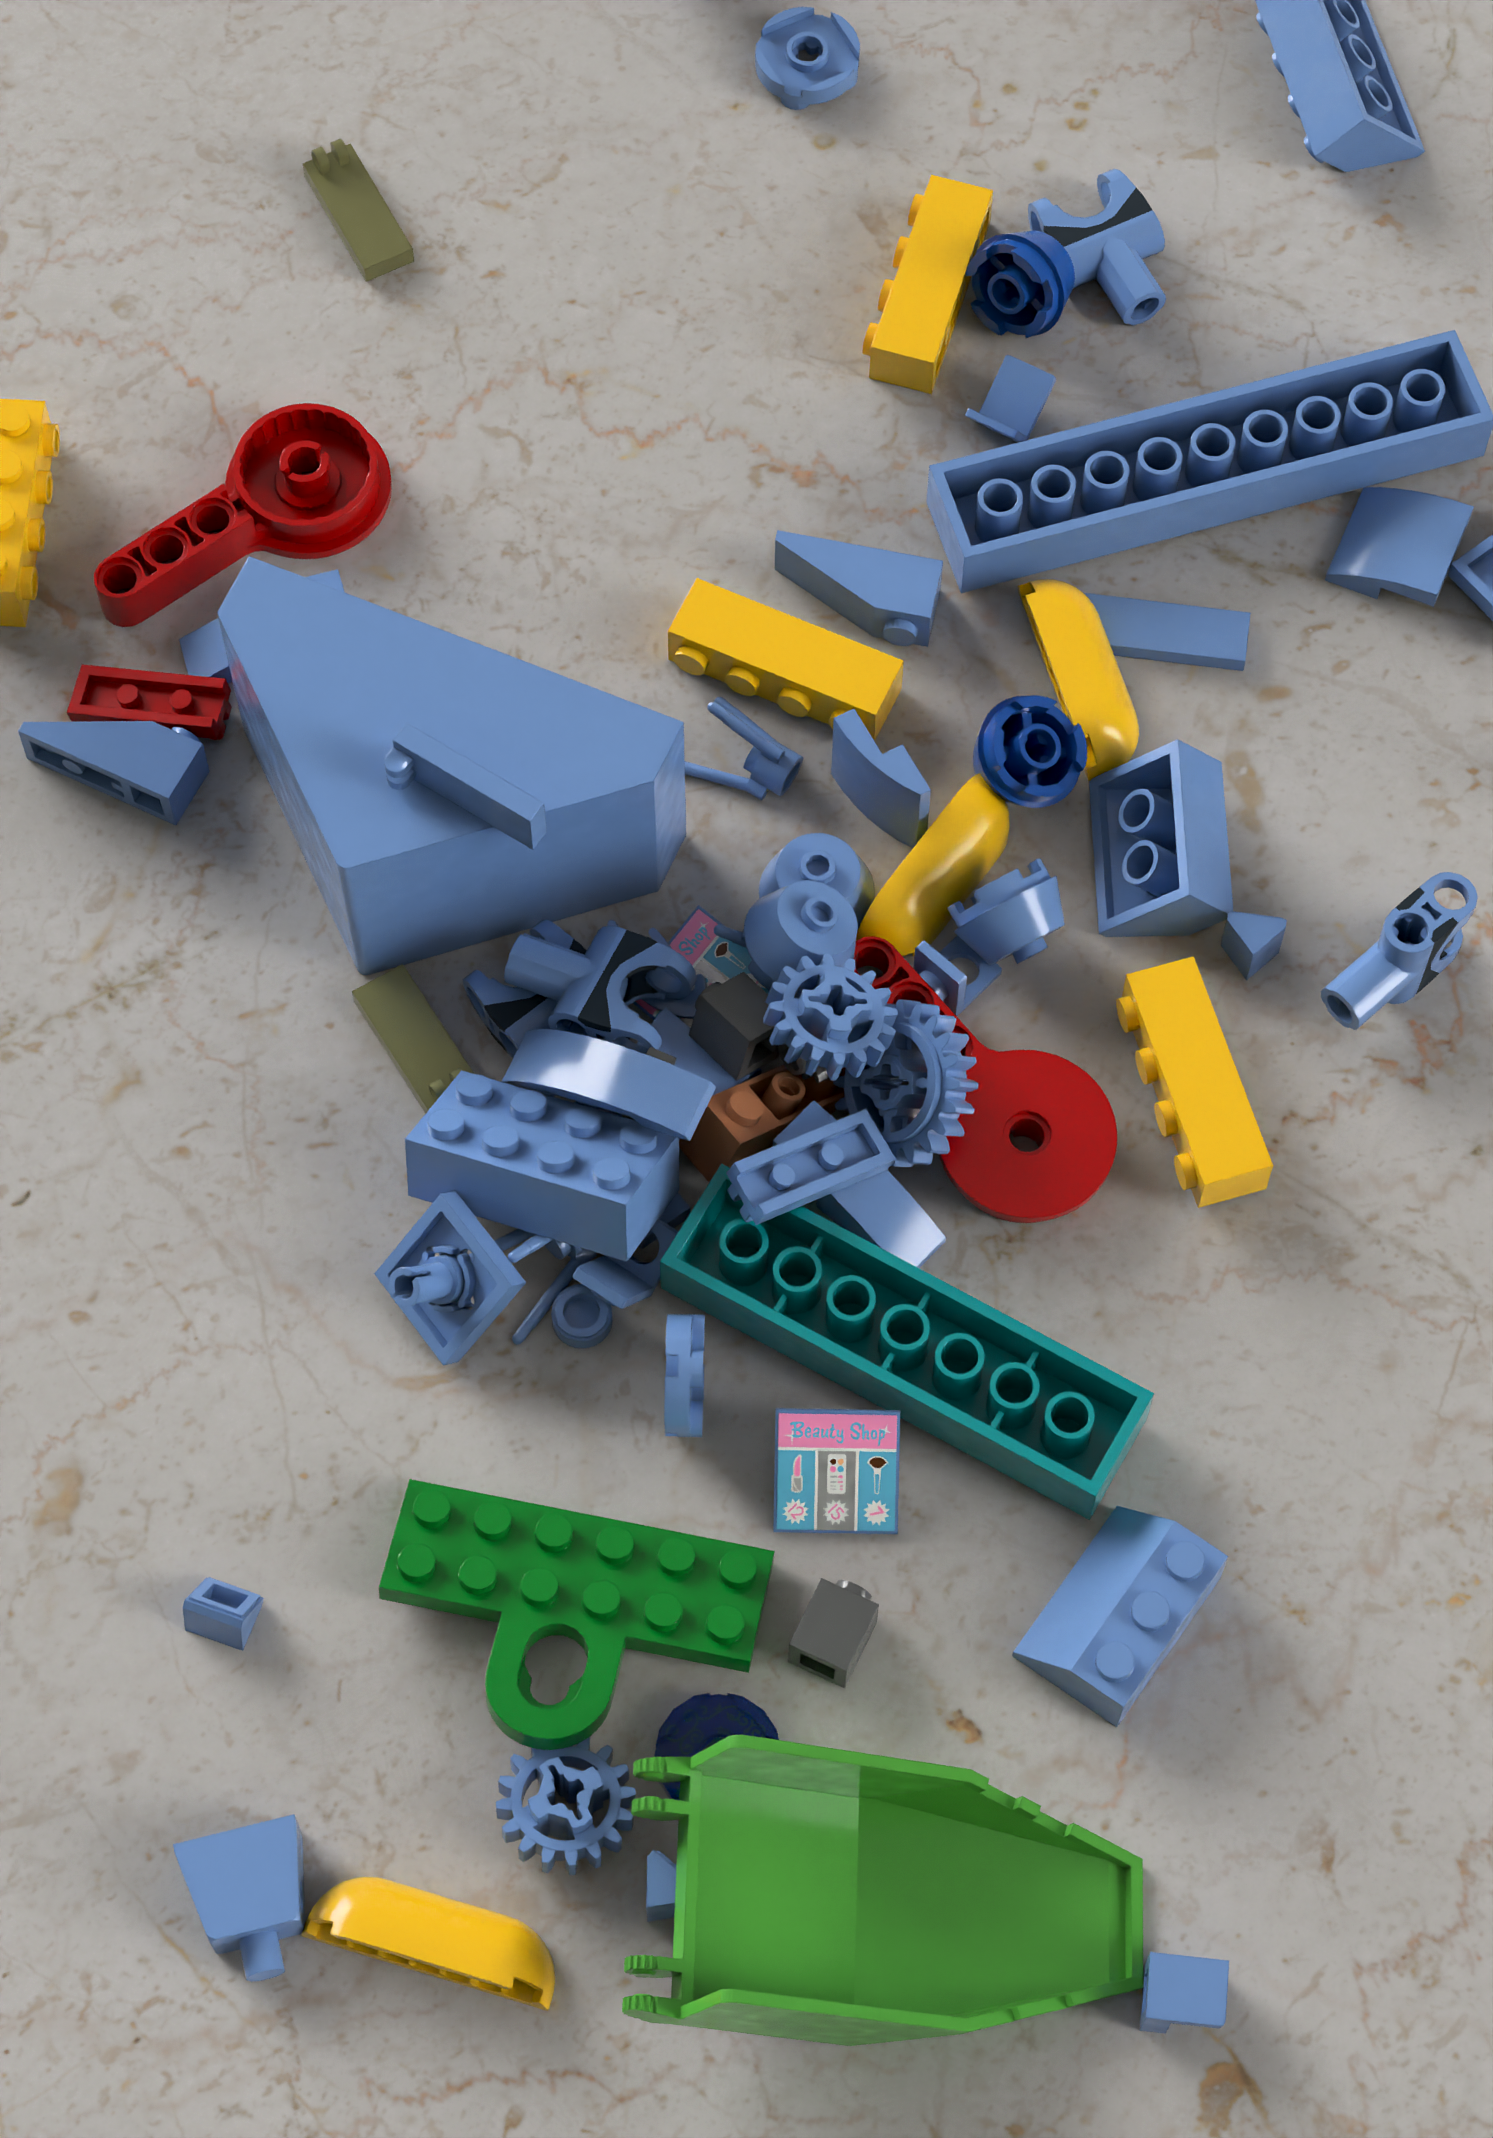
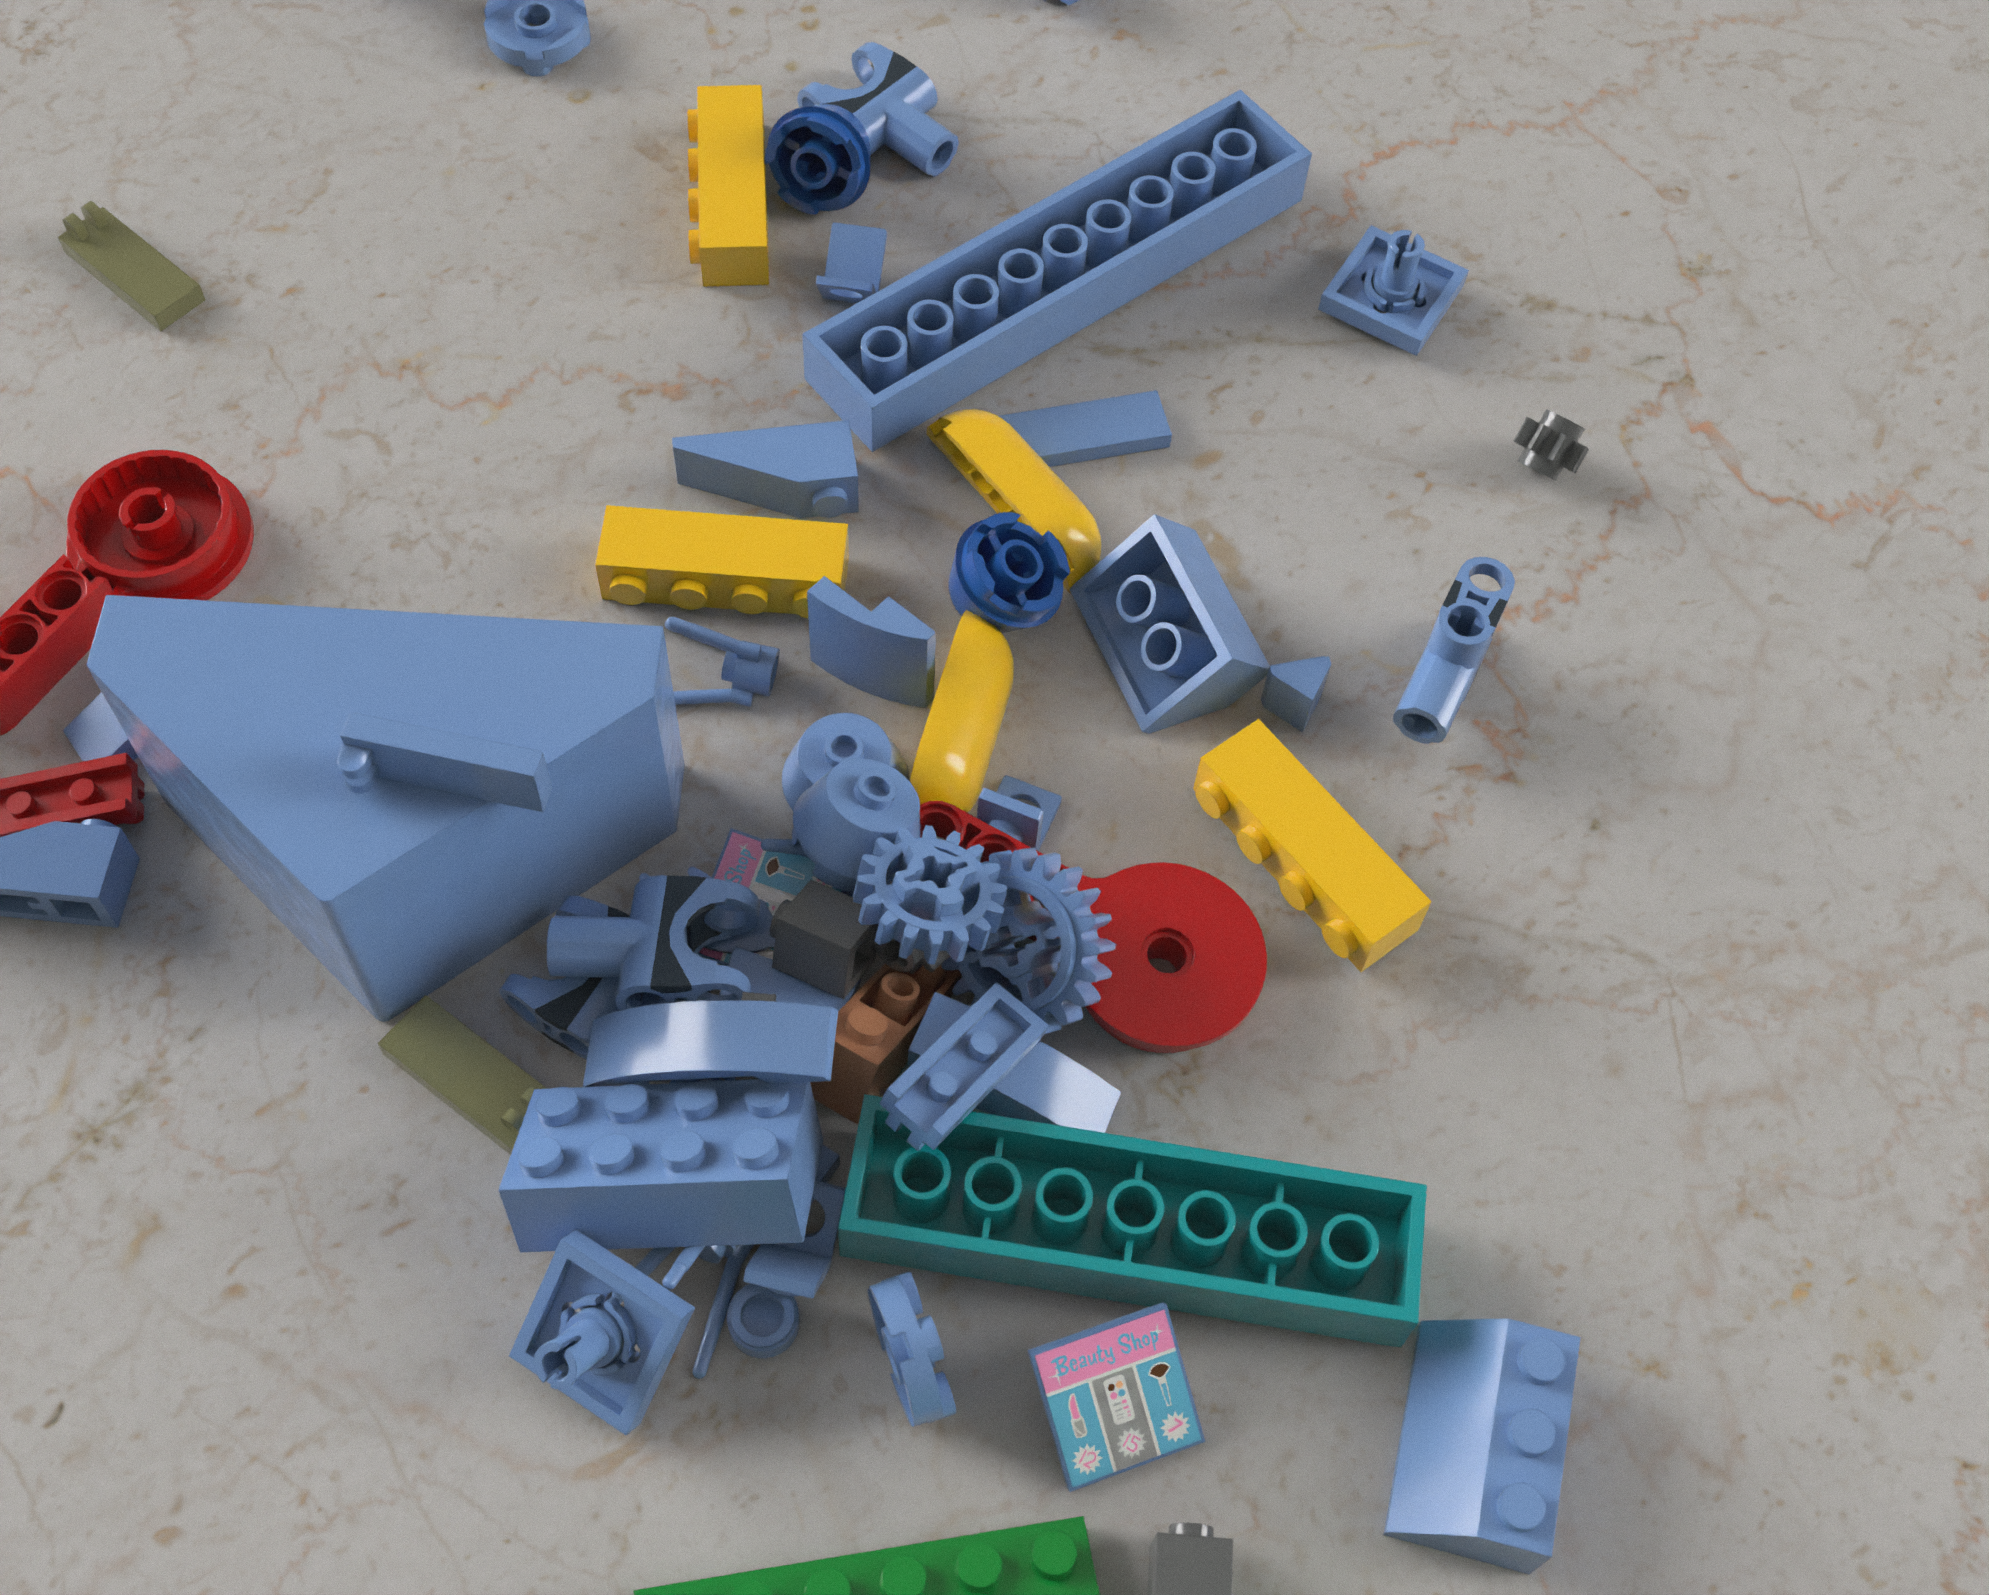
camera: 25 degrees left, 5 degrees down
(1011, 915) = (1056, 737): medium blue cone -> none
(1399, 543) = (1264, 292): medium blue slope -> none

